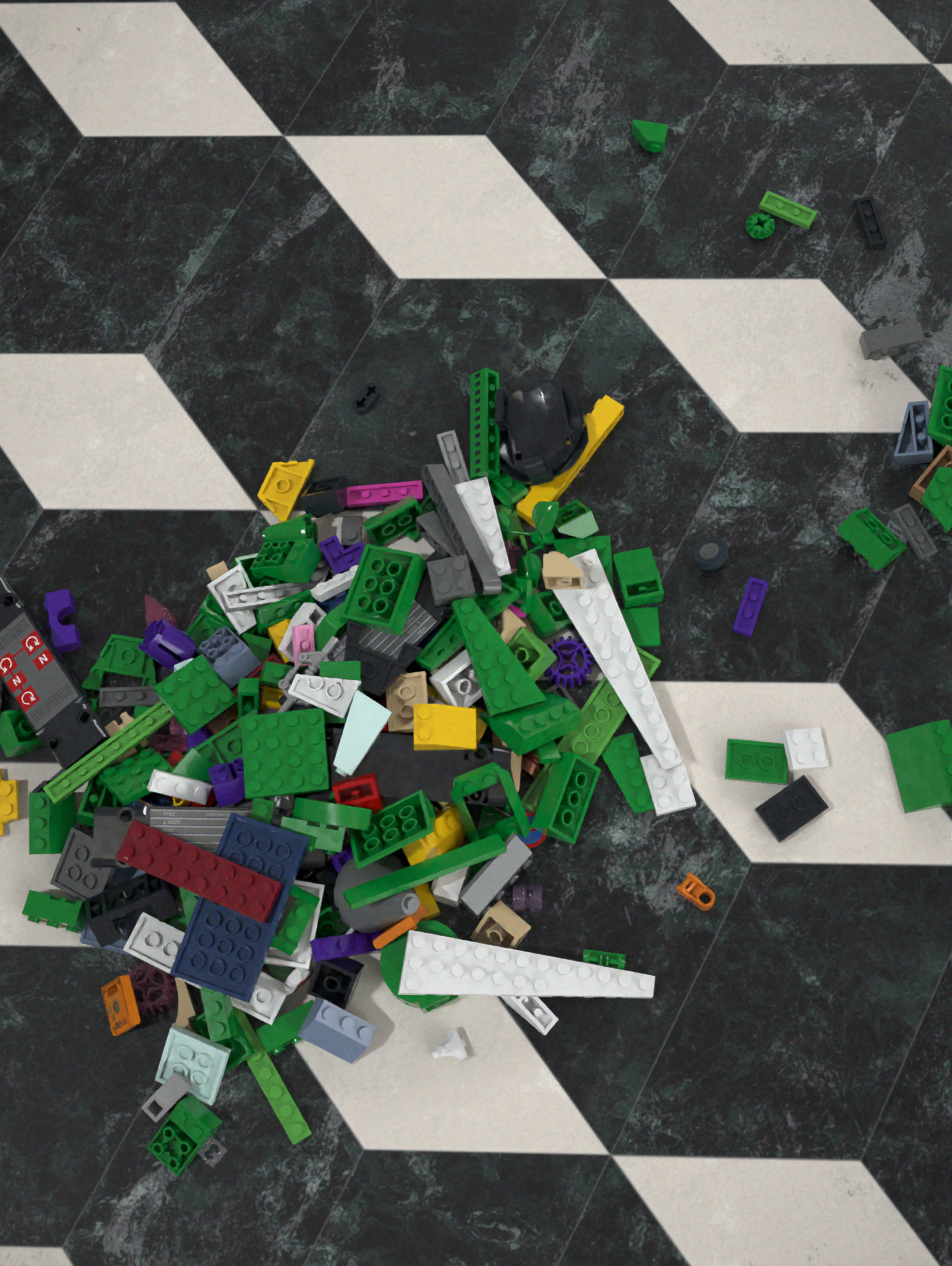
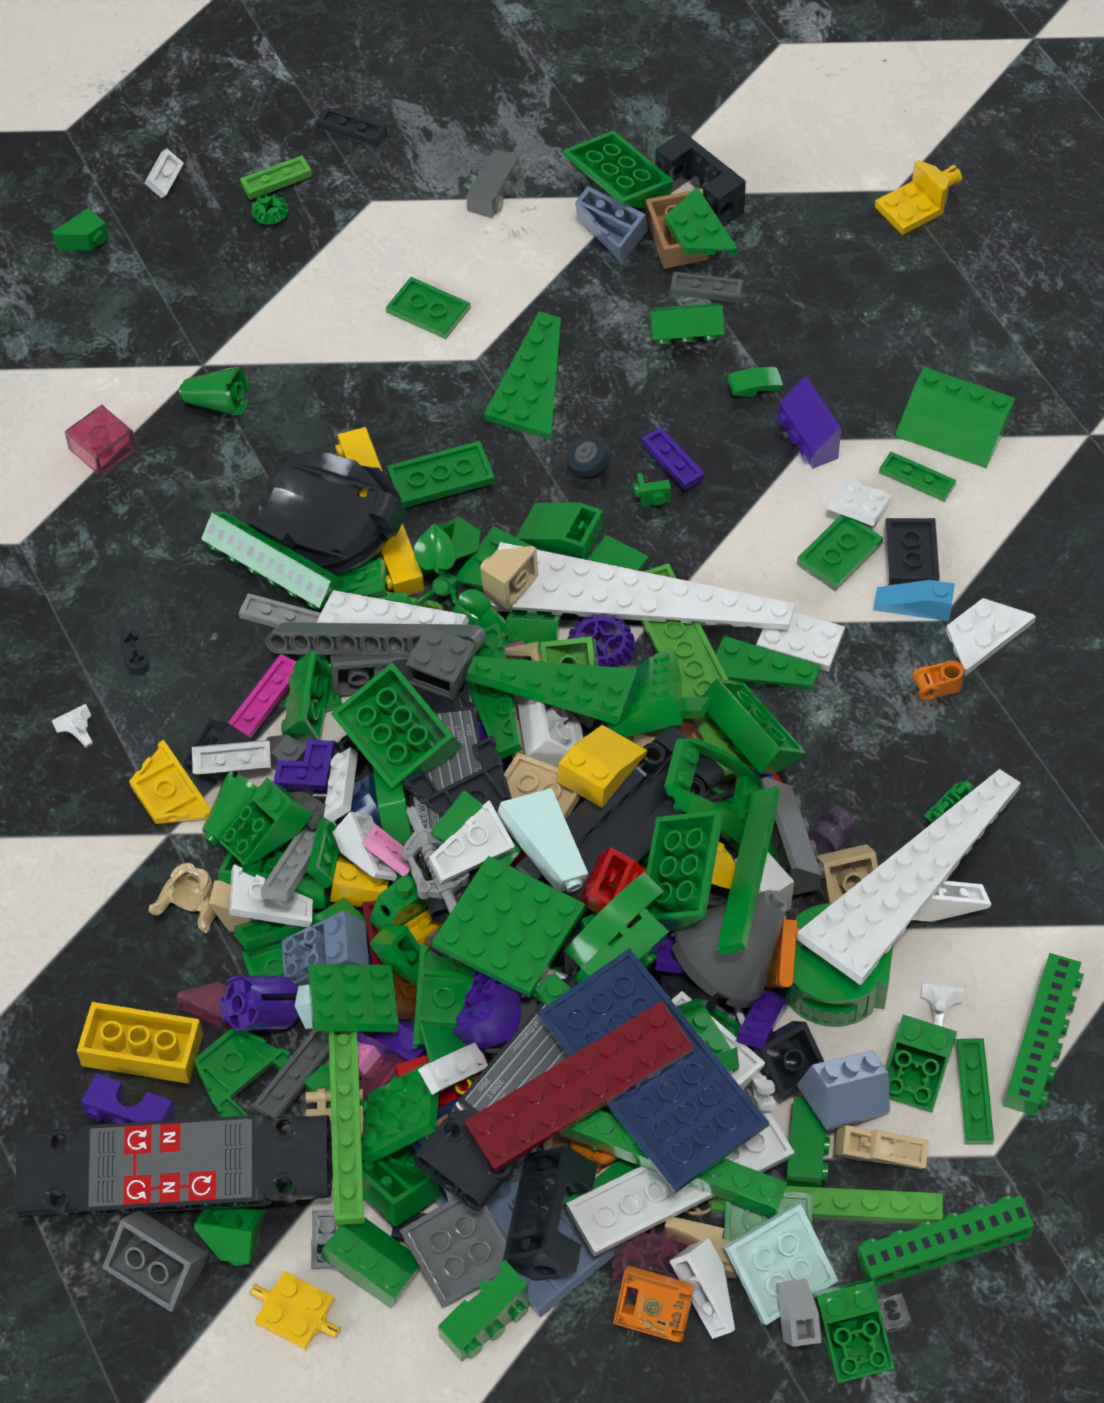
camera: 60 degrees left, 15 degrees down
(104, 597) = (140, 1042): none -> yellow brick
(153, 1024) = (704, 1269): none -> white slope
(221, 549) = (190, 890): none -> tan hair
(278, 1156) = (945, 1240): none -> green brick
(293, 404) = (75, 723): none -> white piece
(316, 1075) = (881, 1147): none -> tan slope
(317, 507) = (231, 757): none -> white plate
(396, 1060) = (919, 1062): none -> green slope
(400, 1108) = (974, 1091): none -> green tile
(468, 1128) = (1042, 1035): none -> green brick
(501, 265) = (100, 440): none -> clear pink brick
(588, 303) = (217, 391): none -> green cone
(627, 475) = (441, 474): none -> green plate
(710, 614) = (651, 493): none -> green bracket
(736, 144) = (164, 173): none -> white plate
(742, 478) = (529, 386): none -> green wing
(752, 836) = (918, 599): none -> dark azure slope
(757, 374) = (428, 307): none -> green tile
(762, 897) = (984, 631): none -> white wing
(841, 675) = (810, 424): none -> dark purple slope
(857, 615) = (751, 380): none -> green slope
(860, 772) = (917, 476): none -> green tile

